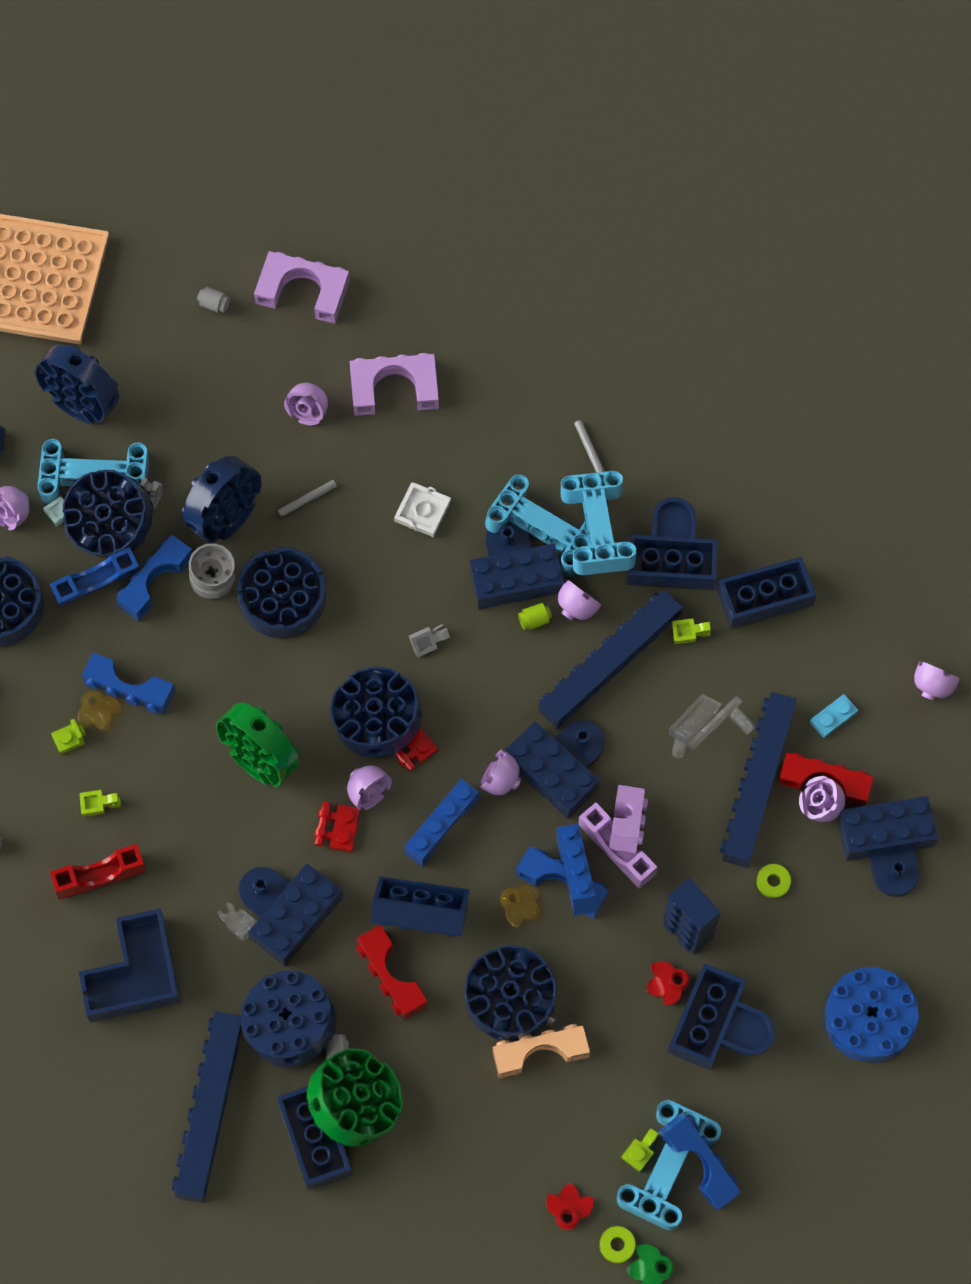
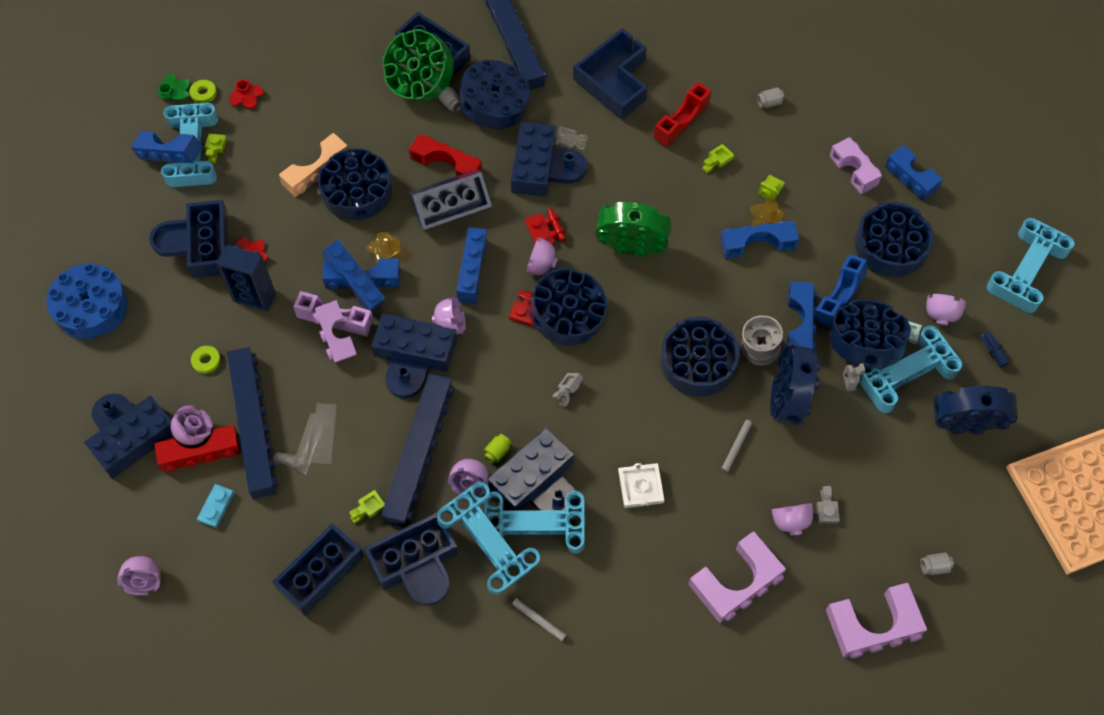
camera: 150 degrees right, 5 degrees down
(269, 397) = (826, 510): none -> light grey plate

